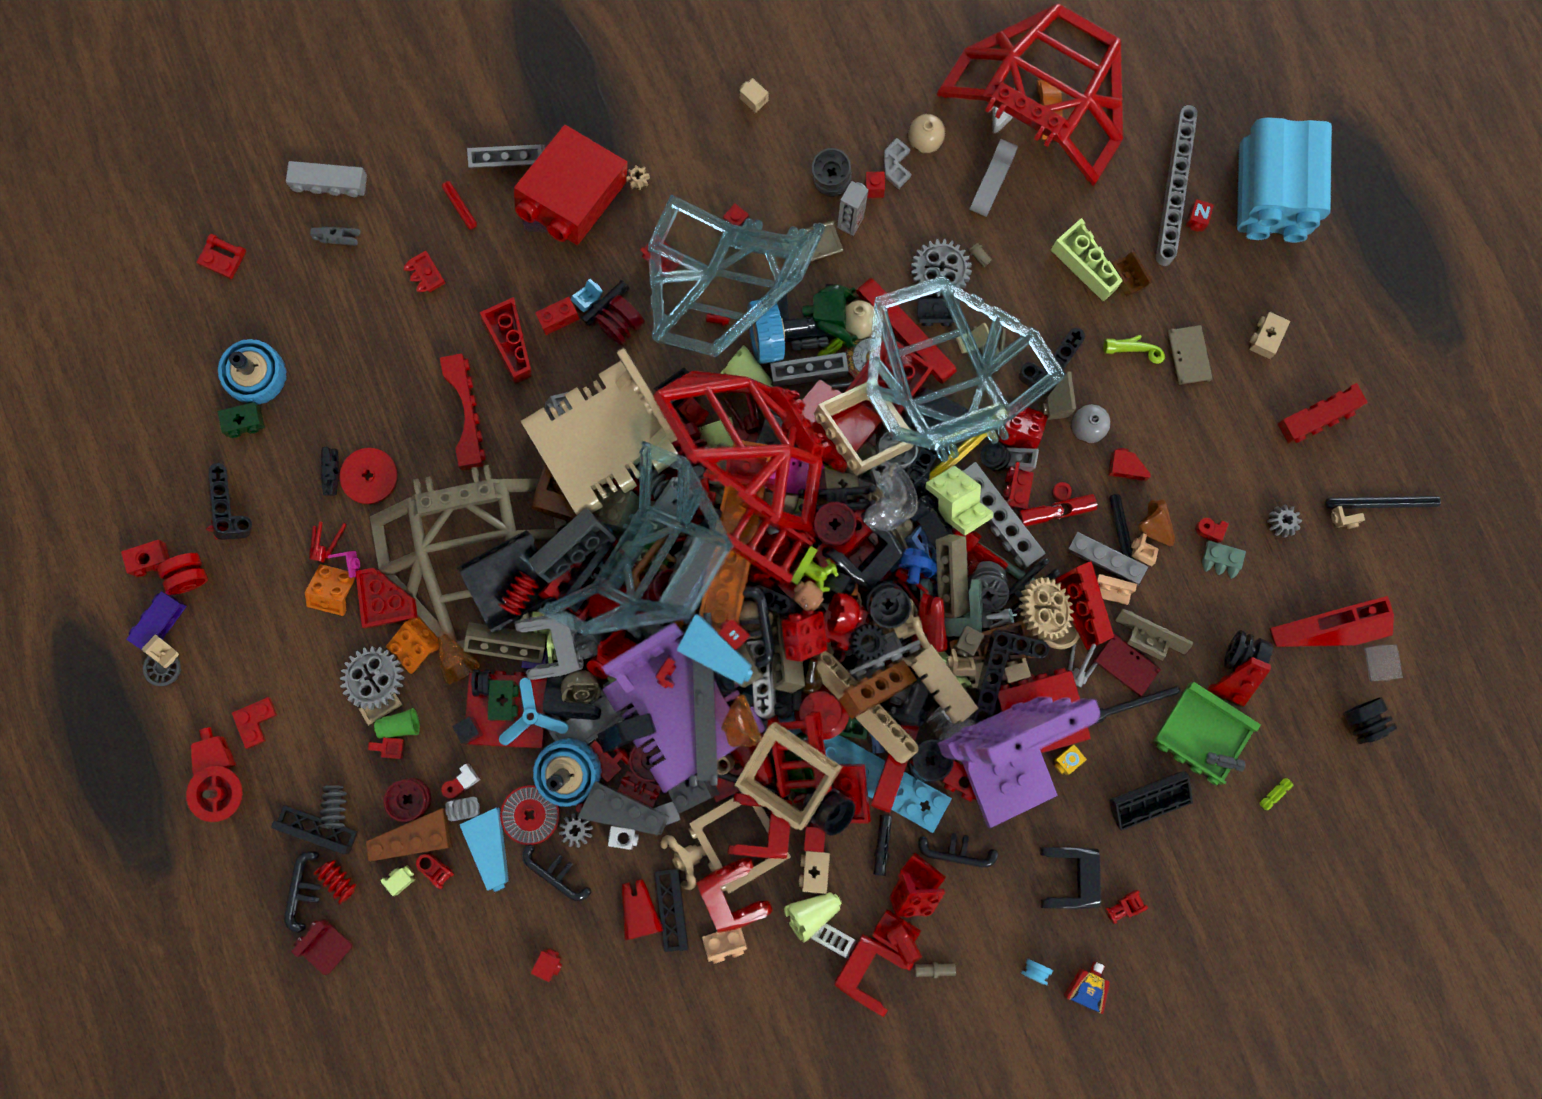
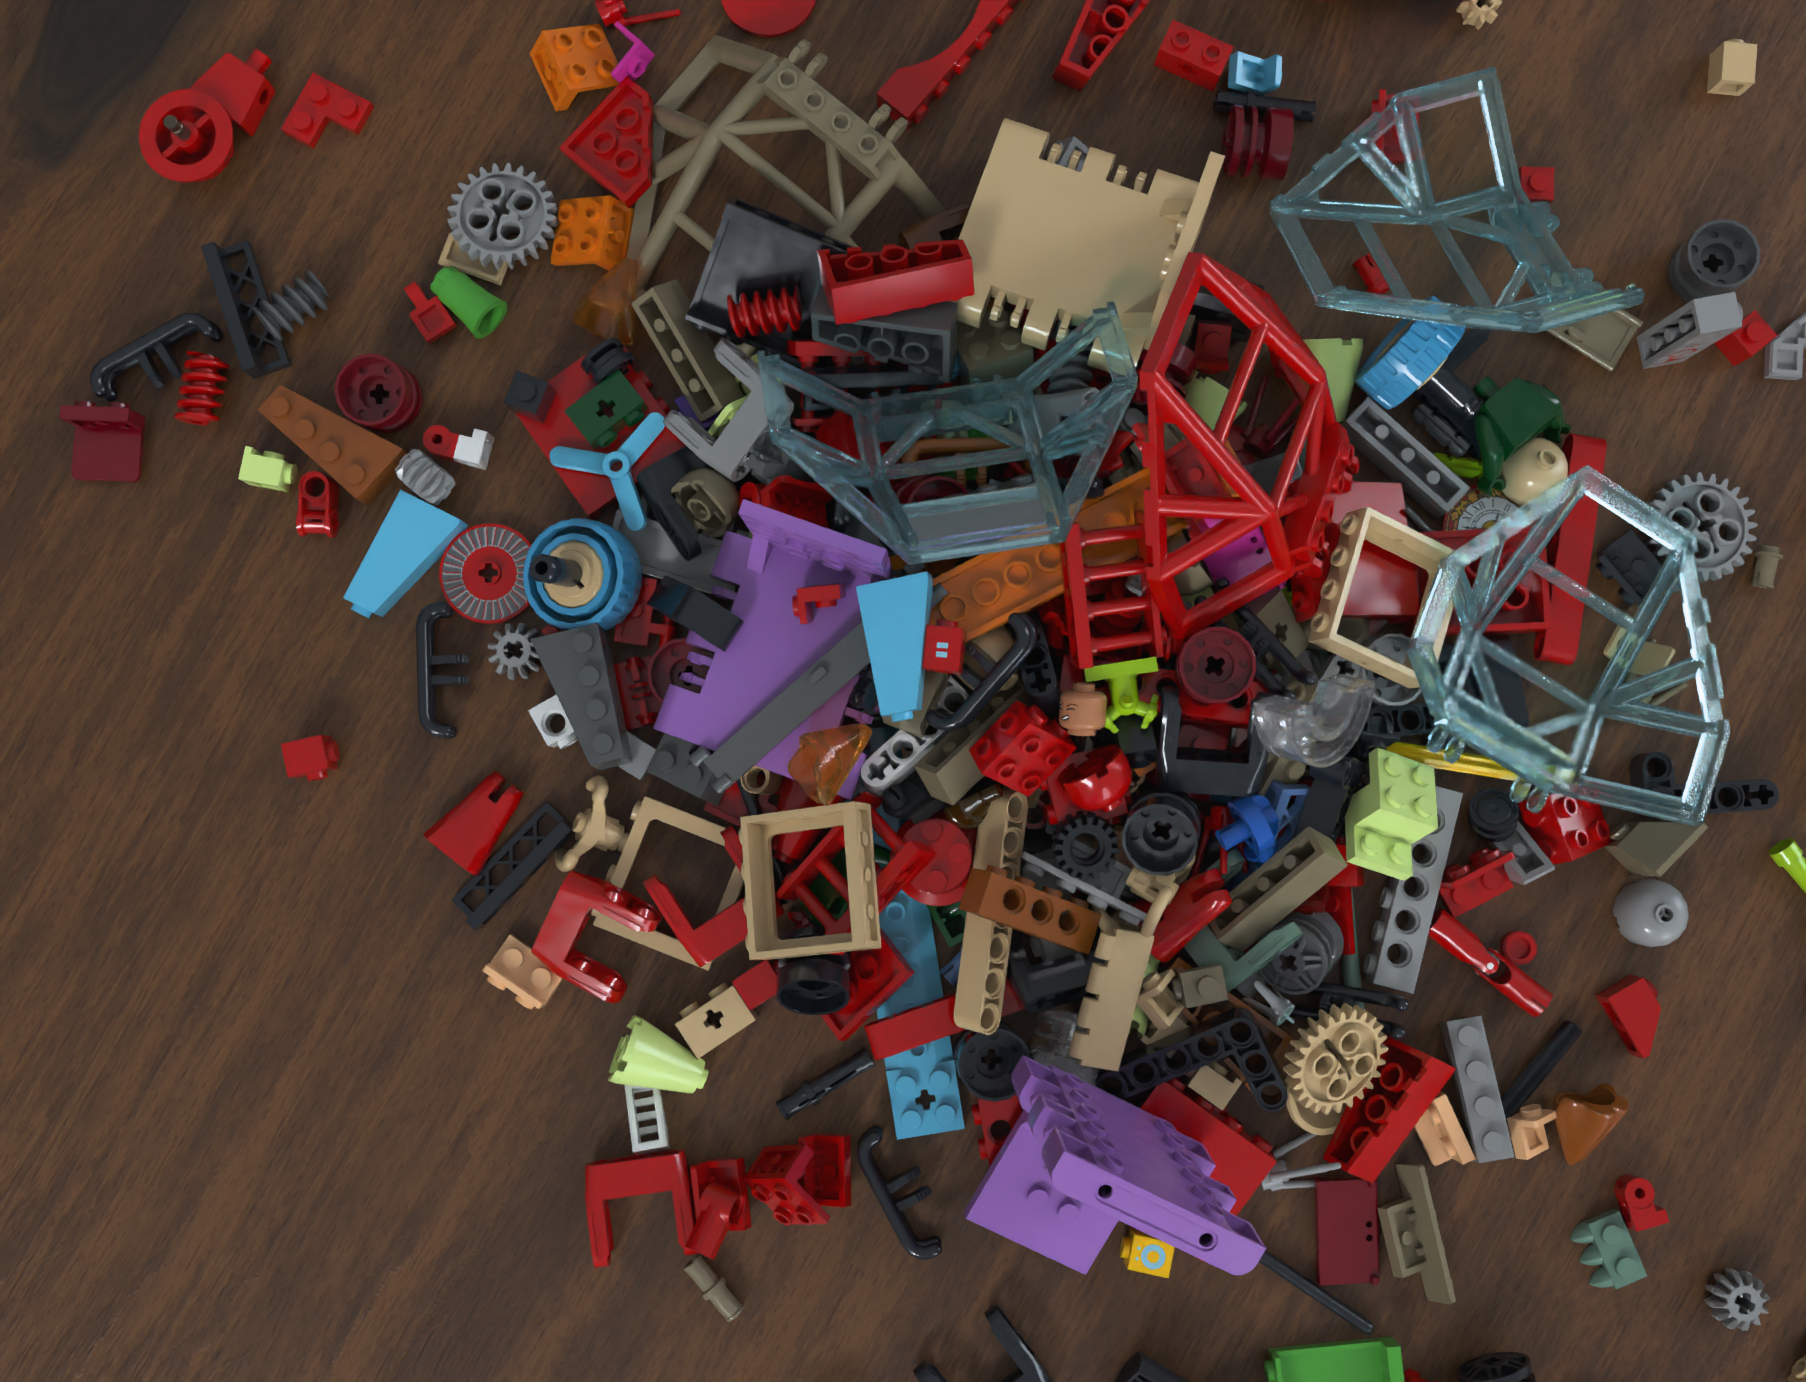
camera: 50 degrees right, 5 degrees up
(553, 526) = (894, 278): none -> red wedge

